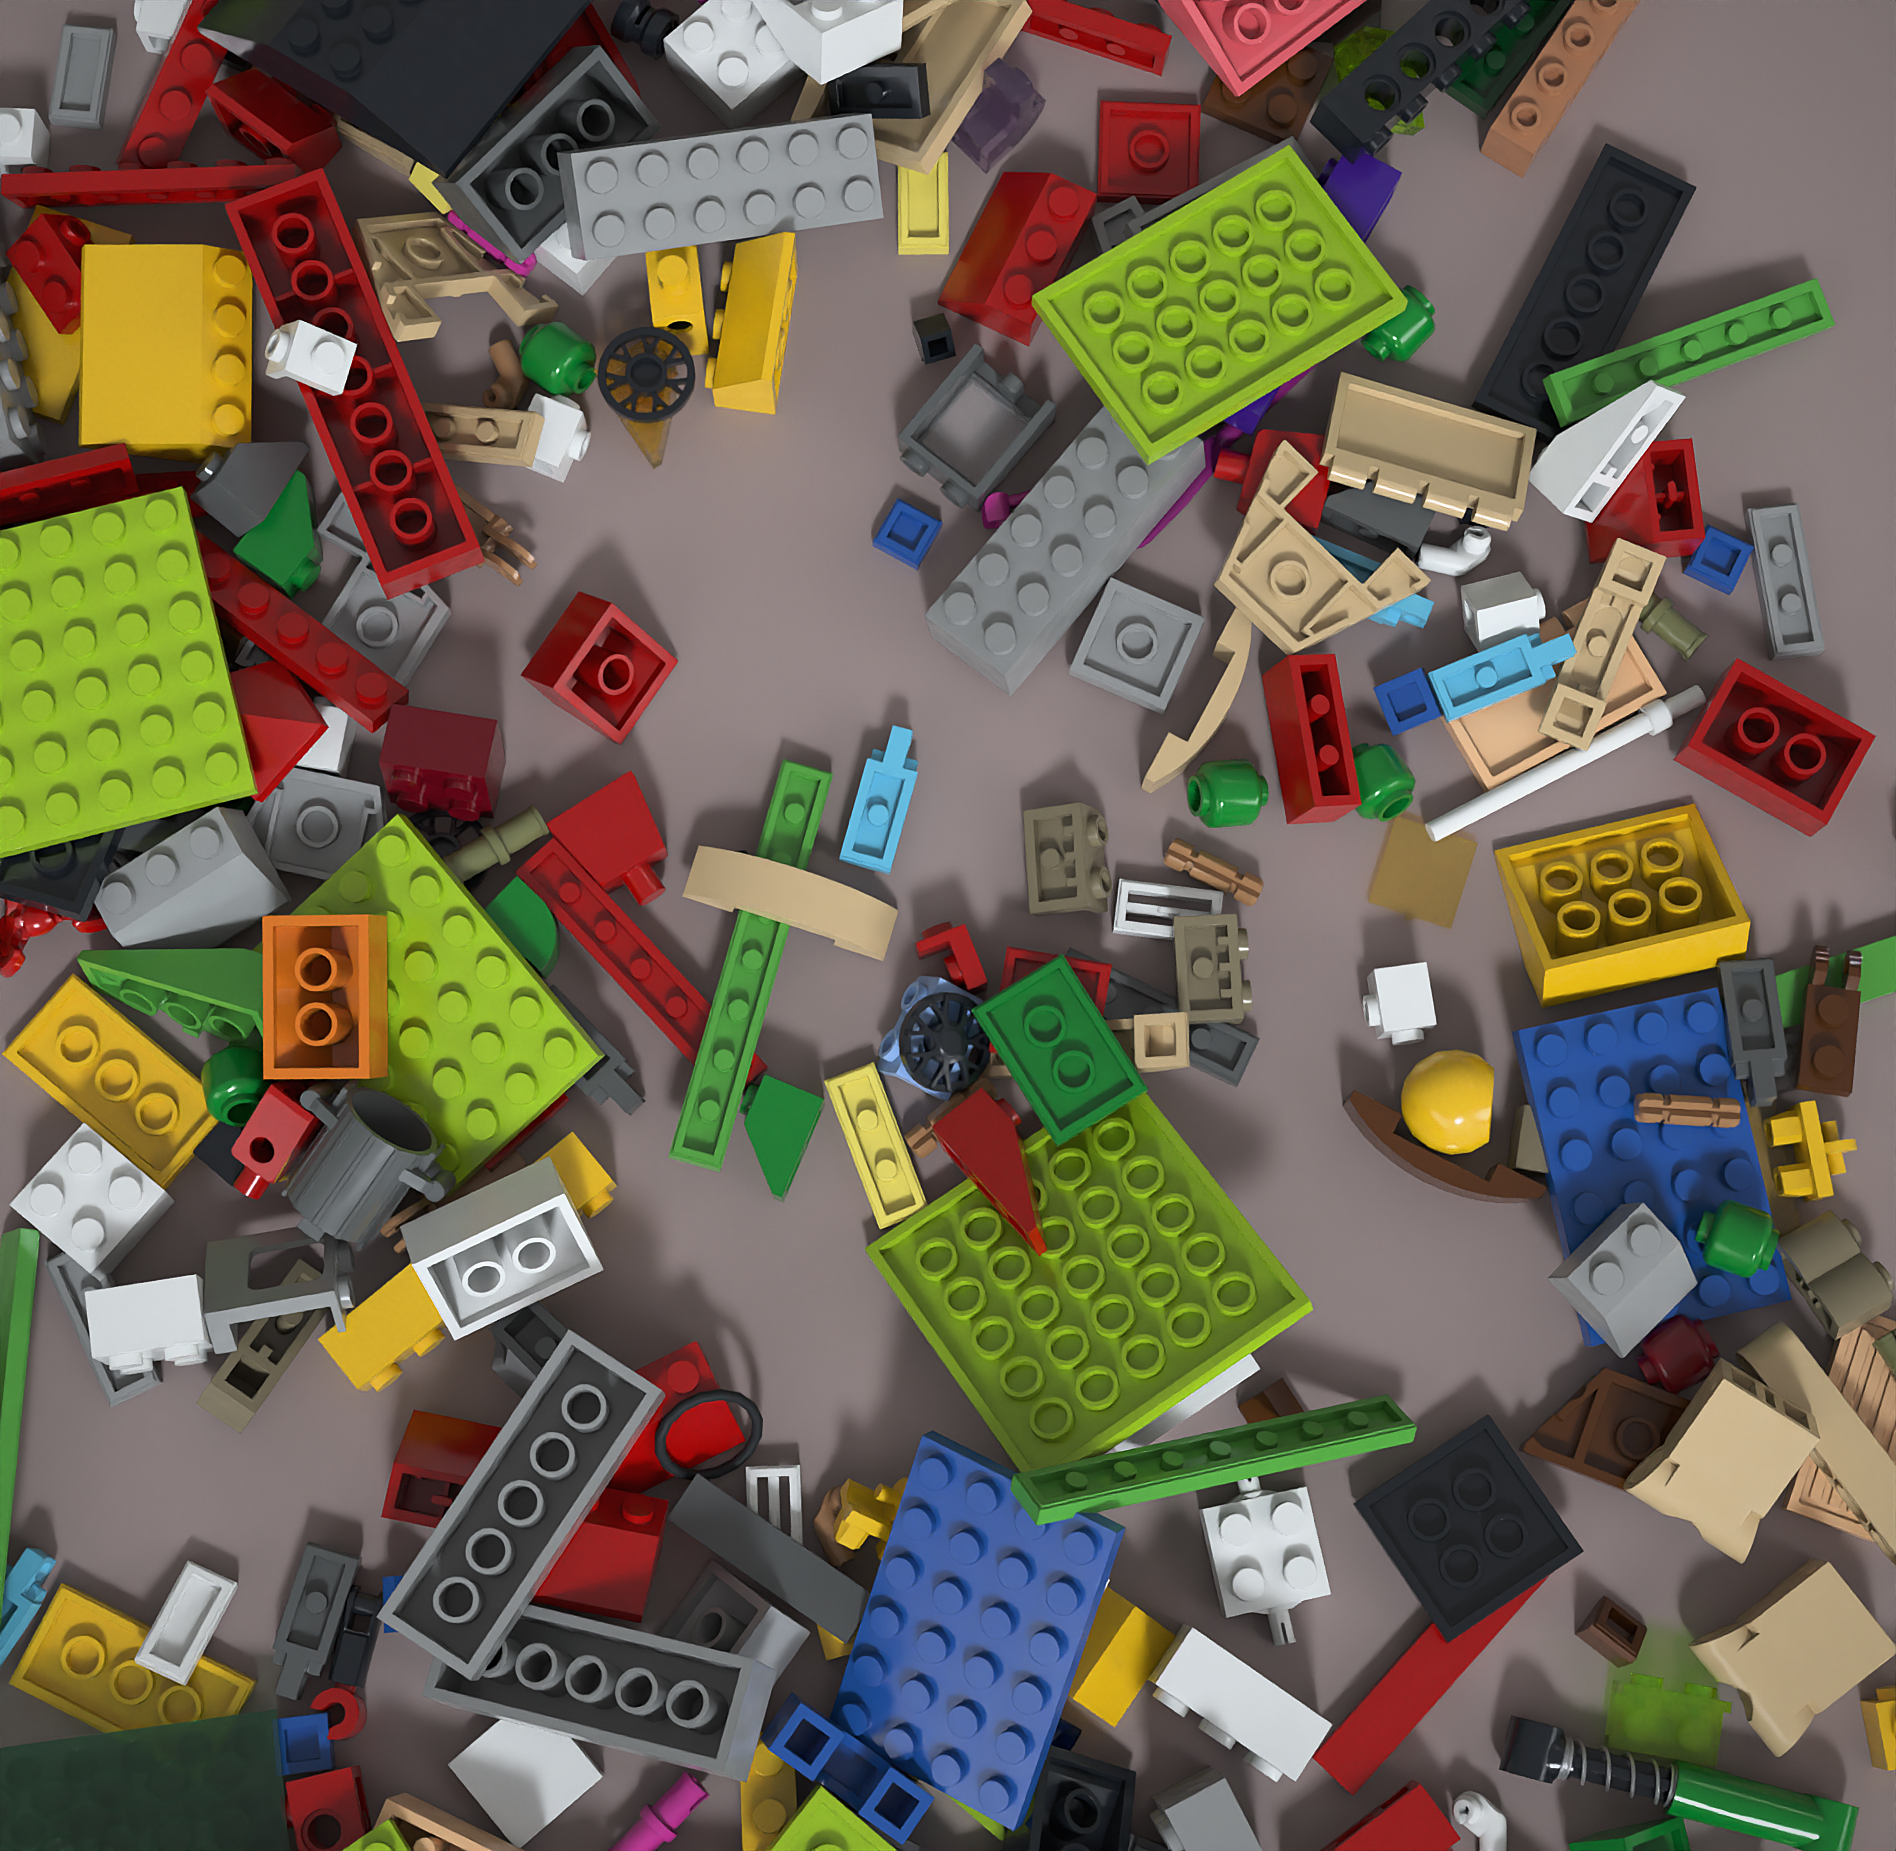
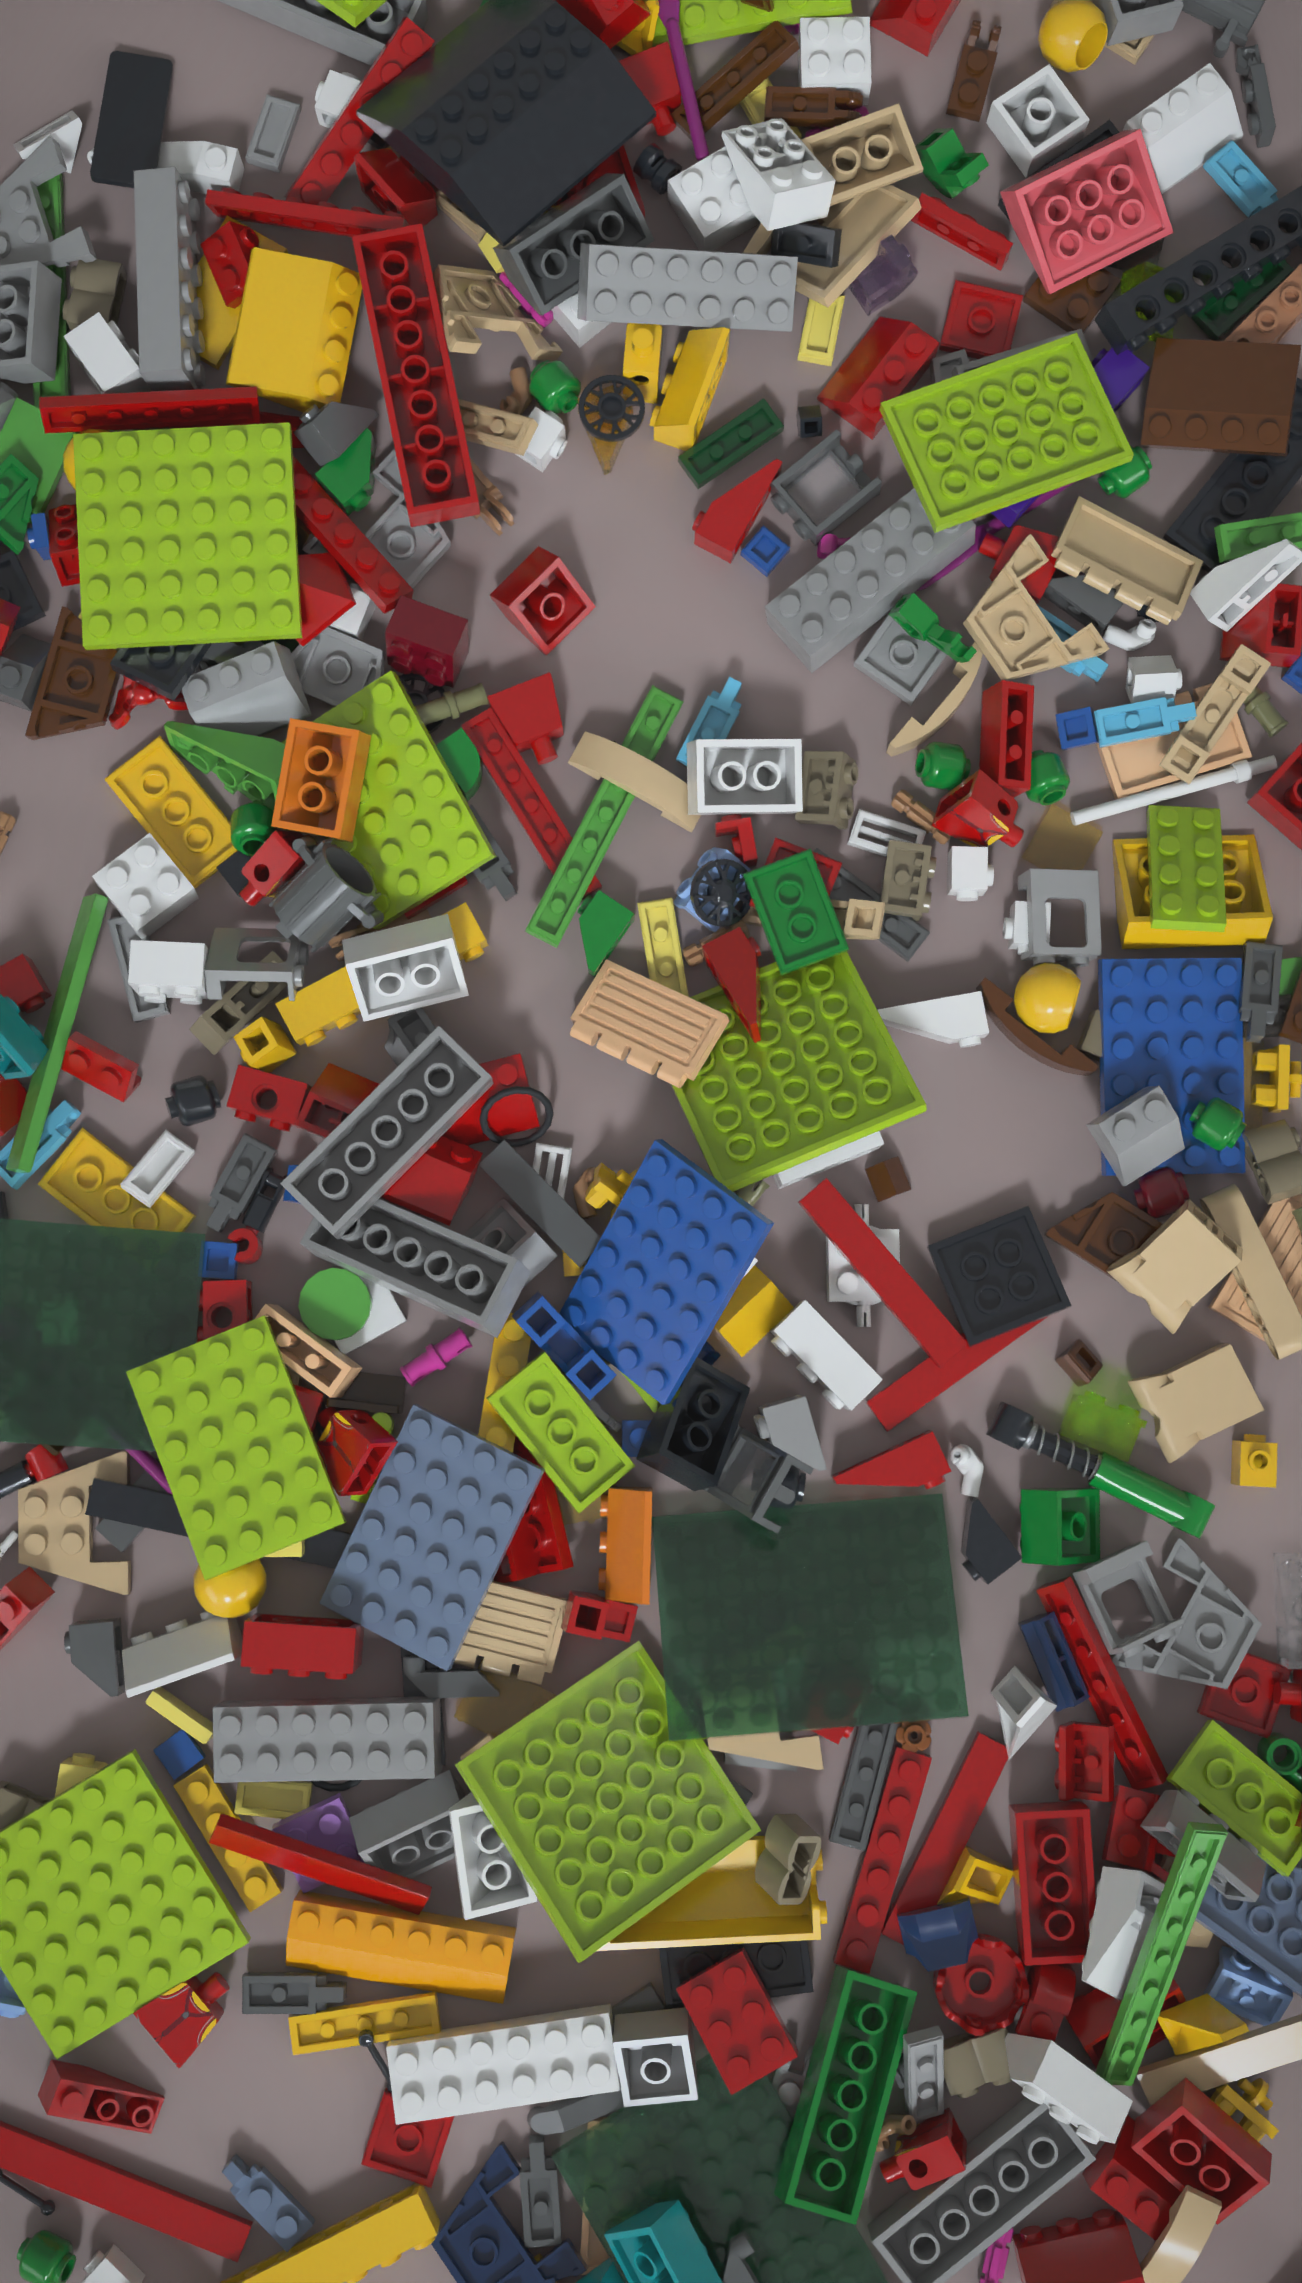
camera: 15 degrees right, 5 degrees up
(73, 1487) = (100, 1067): none -> red bracket
(221, 1509) = (193, 1100): none -> black head
(301, 1477) = (252, 1084): none -> red brick
(310, 356) = (390, 350): white bracket -> none
(313, 1404) = (264, 1045): none -> yellow brick
(491, 1775) = (335, 1304): none -> bright green tile
(827, 391) = (730, 443): none -> dark green plate
(851, 491) = (733, 514): none -> red slope
(878, 1254) = (648, 1022): none -> light nougat hinge
(944, 867) = (744, 776): none -> white brick
(1158, 597) = (923, 623): none -> green piece
(1211, 1459) = (840, 1194): bright green tile -> none
(1294, 853) = (978, 813): none -> red torso
(1297, 940) = (968, 872): none -> white brick
(1305, 1163) = (943, 1019): none -> white slope
(1316, 1575) = (882, 1273): none -> red tile
(1435, 933) = (1061, 884): none -> light grey window
(1511, 194) = (1221, 396): none -> reddish brown slope
(1609, 875) = (1186, 868): none -> lime plate
(1686, 1110) = (1202, 1033): medium nougat axle -> none

